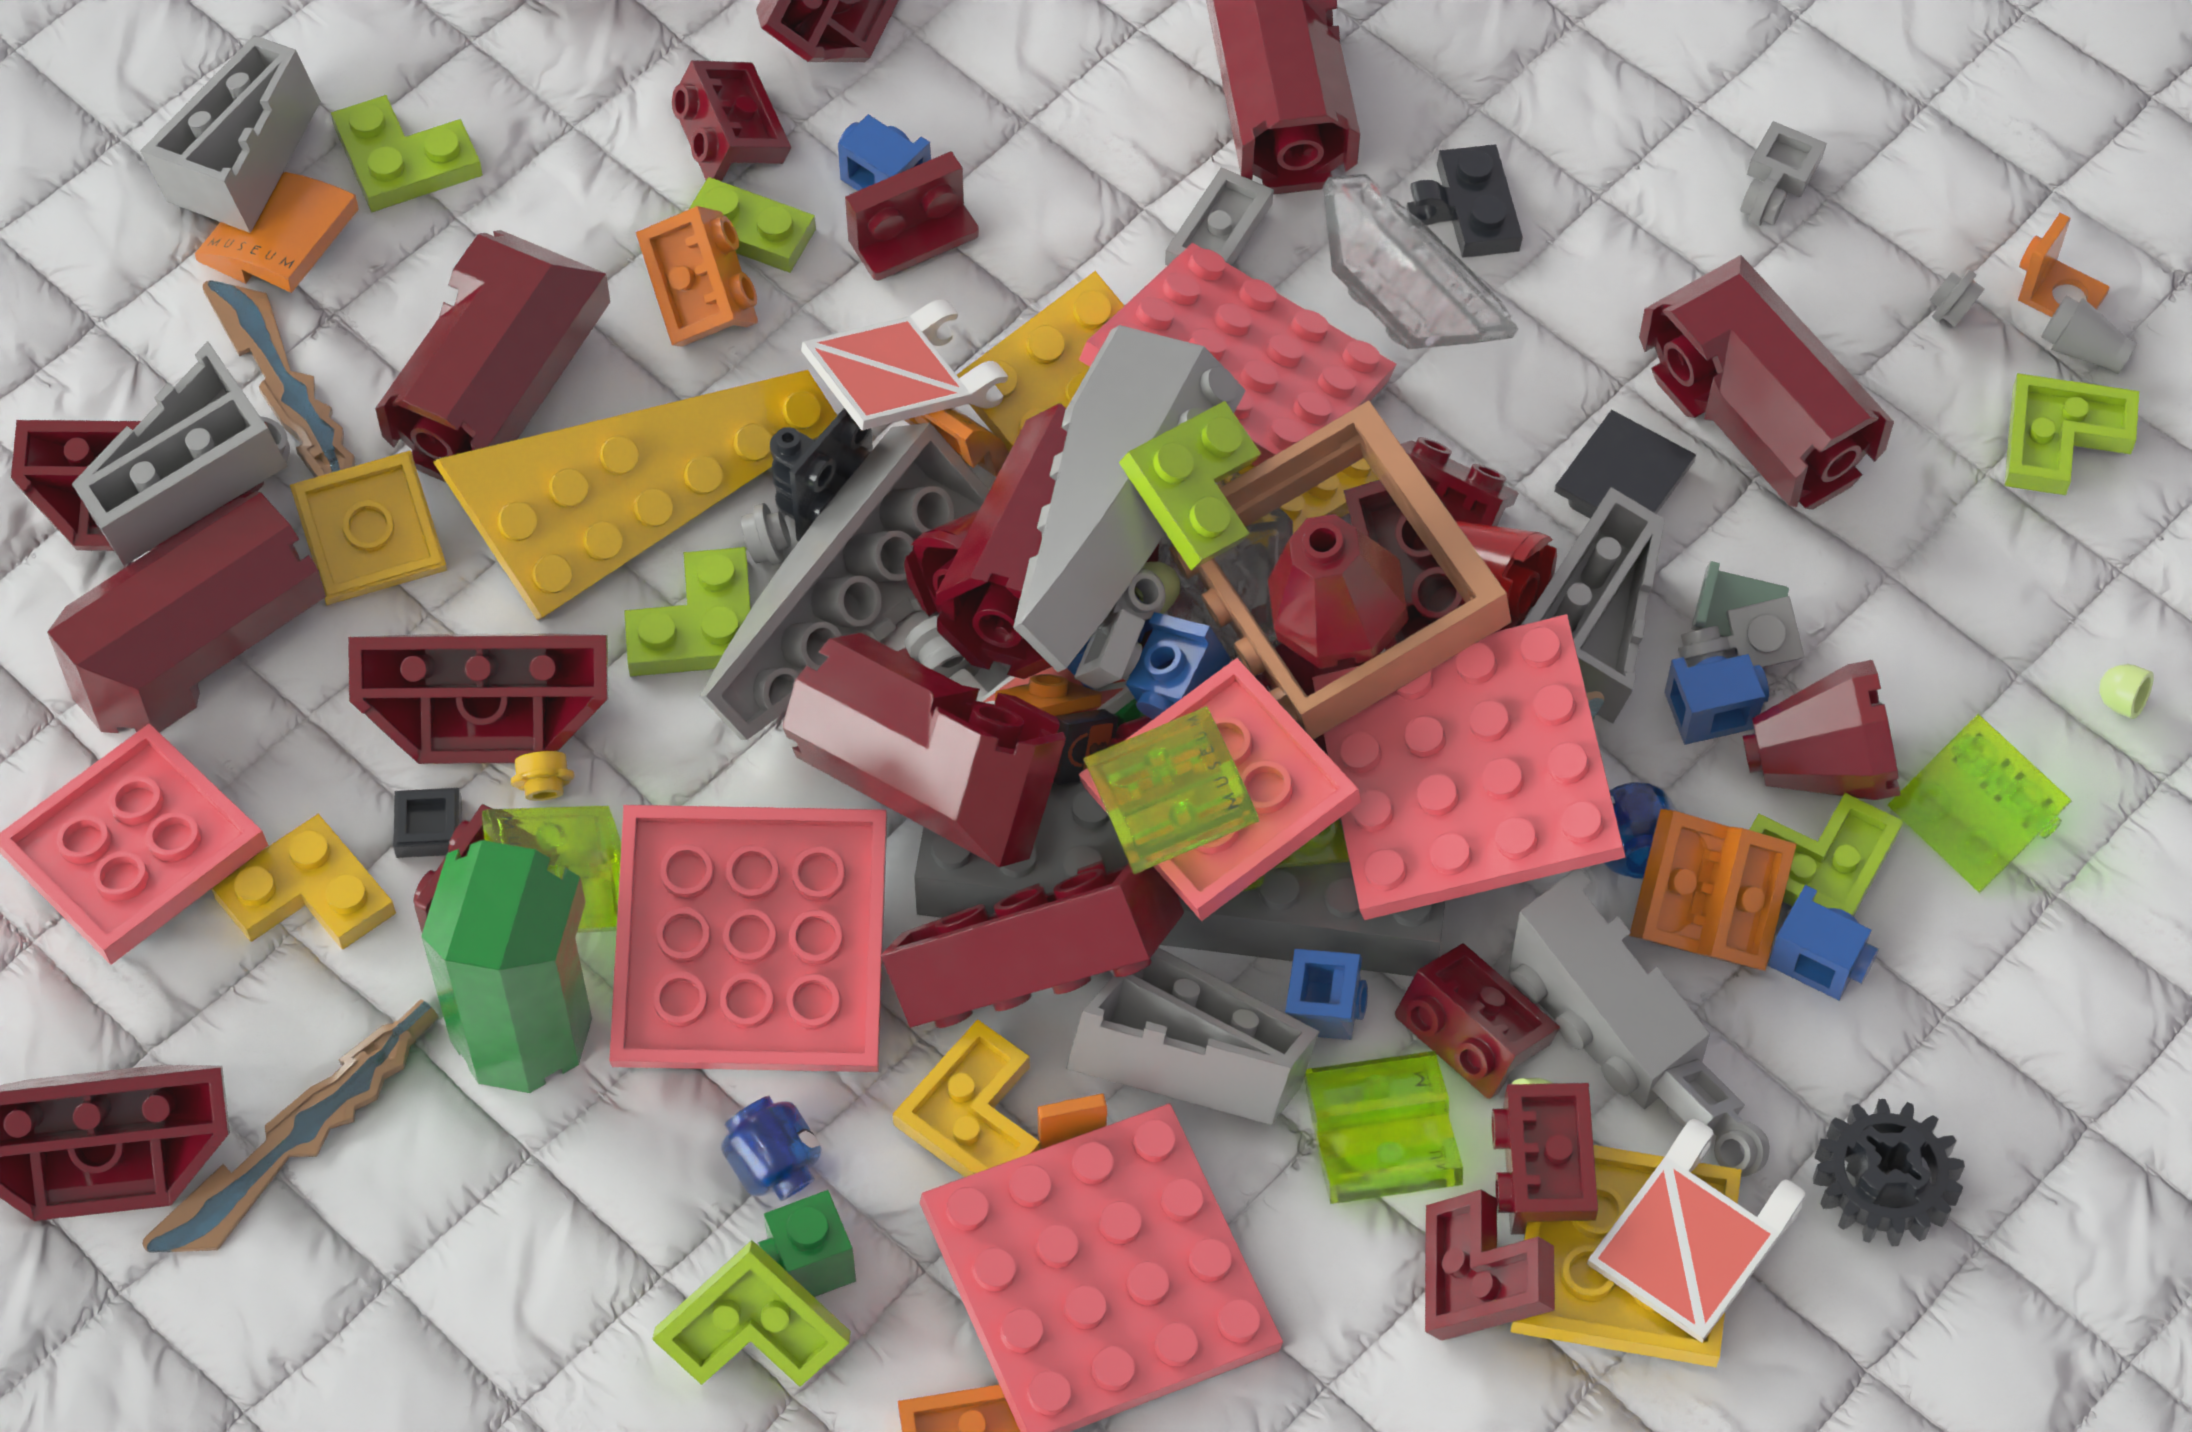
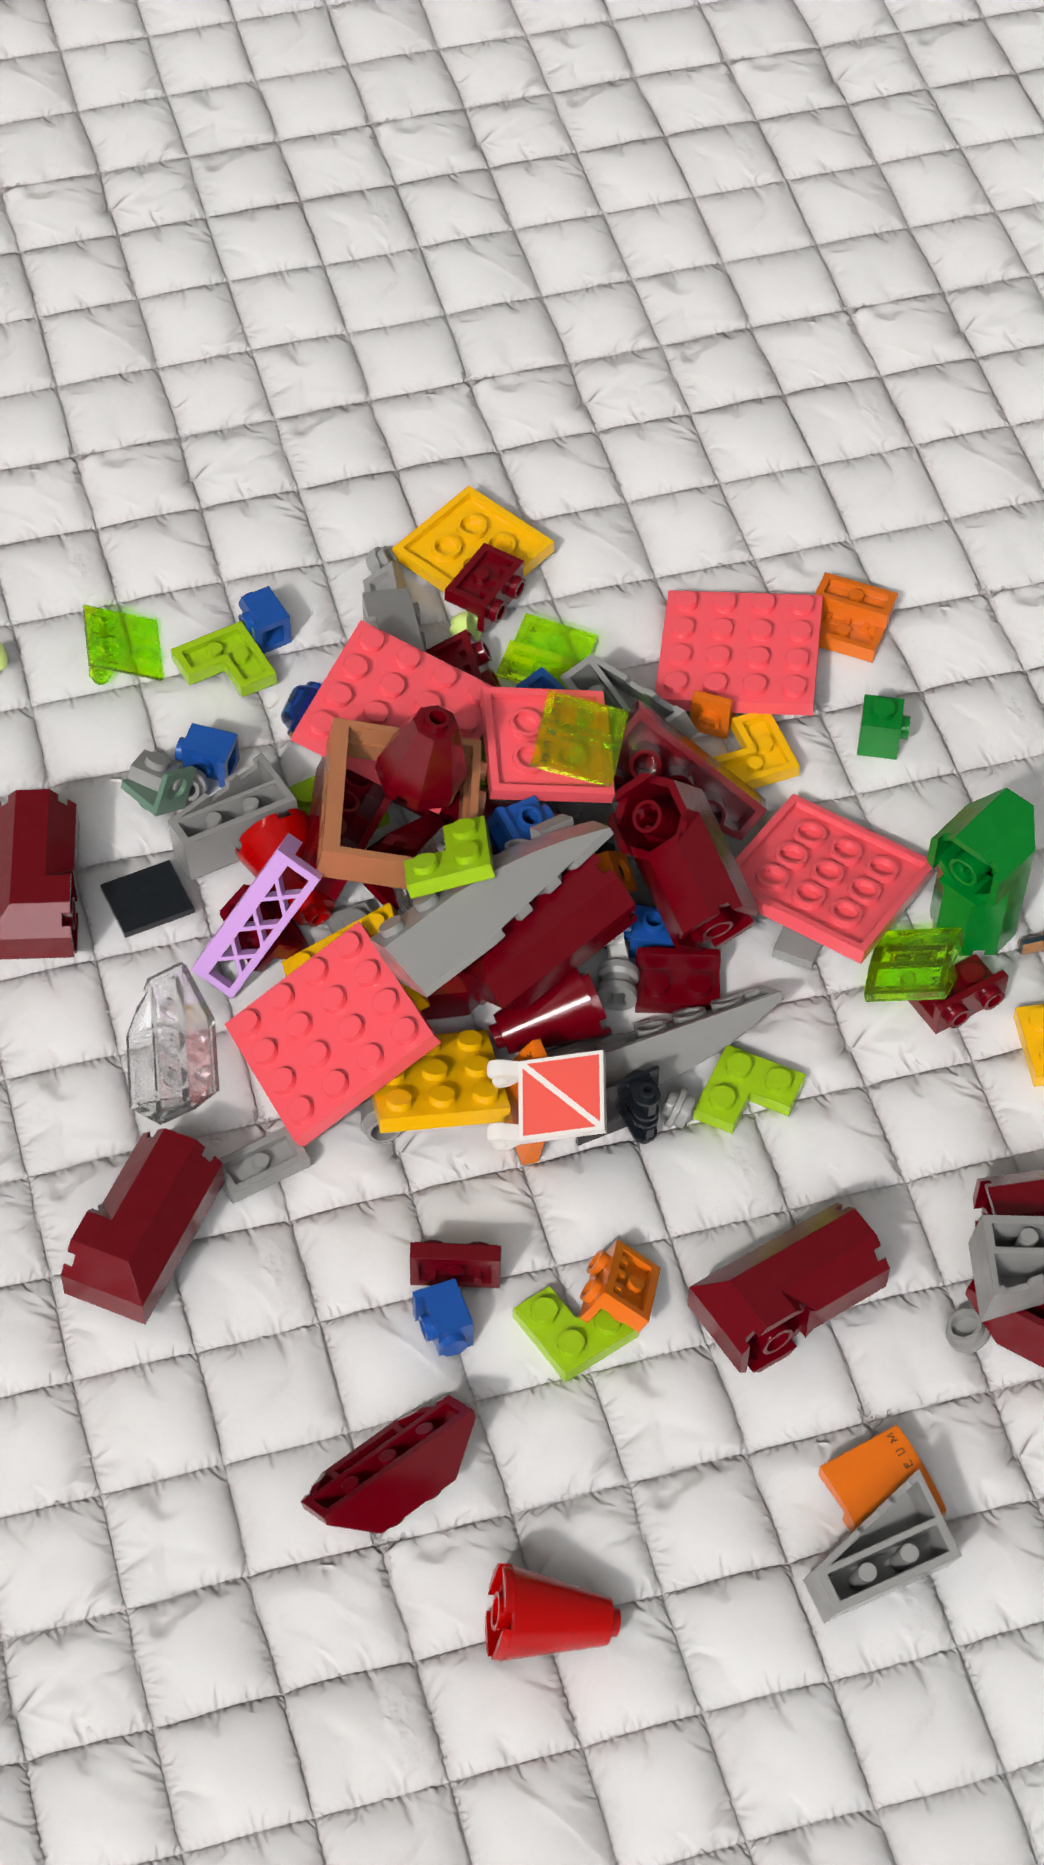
camera: 150 degrees left, 5 degrees down
(290, 394) = (928, 1372): medium nougat sword -> none
(368, 527) = (924, 1234): yellow plate -> none
(397, 166) = (773, 1506): lime plate -> none
(425, 821) = (971, 1050): black tile -> none
(478, 692) = (899, 1093): dark red wedge -> none
(542, 775) = (891, 1036): yellow plate -> none
(603, 491) = (740, 1170): yellow wing -> none
(728, 117) = (525, 1409): dark red bracket -> none
(756, 1304) = (928, 703): lime plate -> none
(771, 1148) = (873, 781): clear blue head -> none
(1446, 421) = (249, 905): none -> lavender fence
(1473, 1281) = (562, 559): dark red plate -> none
(1474, 198) = (89, 1104): black plate -> none
(1689, 1244) = (443, 526): flag -> none
(1712, 889) = (293, 659): orange slope -> none
(1828, 738) = (172, 694): dark red cone -> none
(1905, 1195) = (322, 518): black gear -> none

